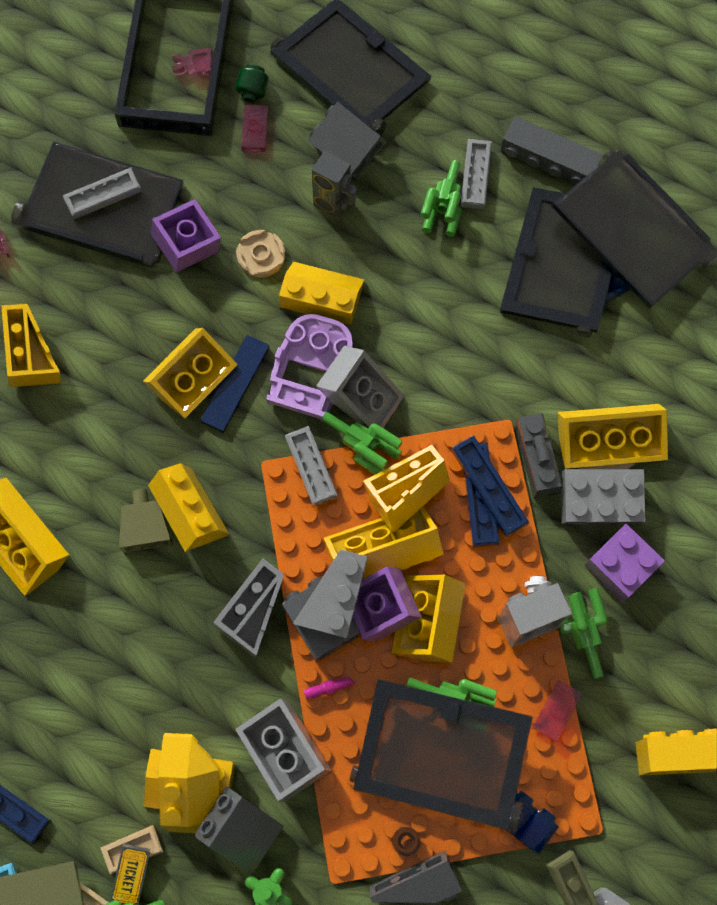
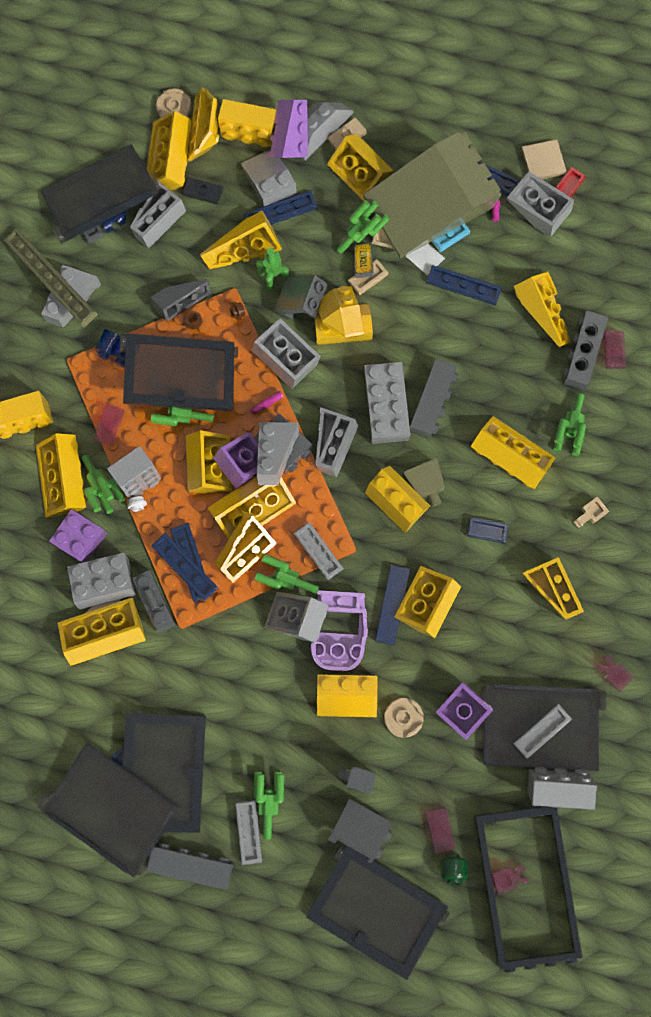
camera: 170 degrees right, 5 degrees up
(35, 855) = (425, 258): none -> white sticker
(85, 446) = (487, 530): none -> dark blue tile
(96, 636) = (433, 398): none -> dark grey brick
(102, 127) = (561, 788): none -> light grey brick
(162, 645) = (386, 403): none -> light grey brick
(337, 837) = (237, 310): none -> reddish brown plate
(635, 655) = (60, 475): none -> yellow slope

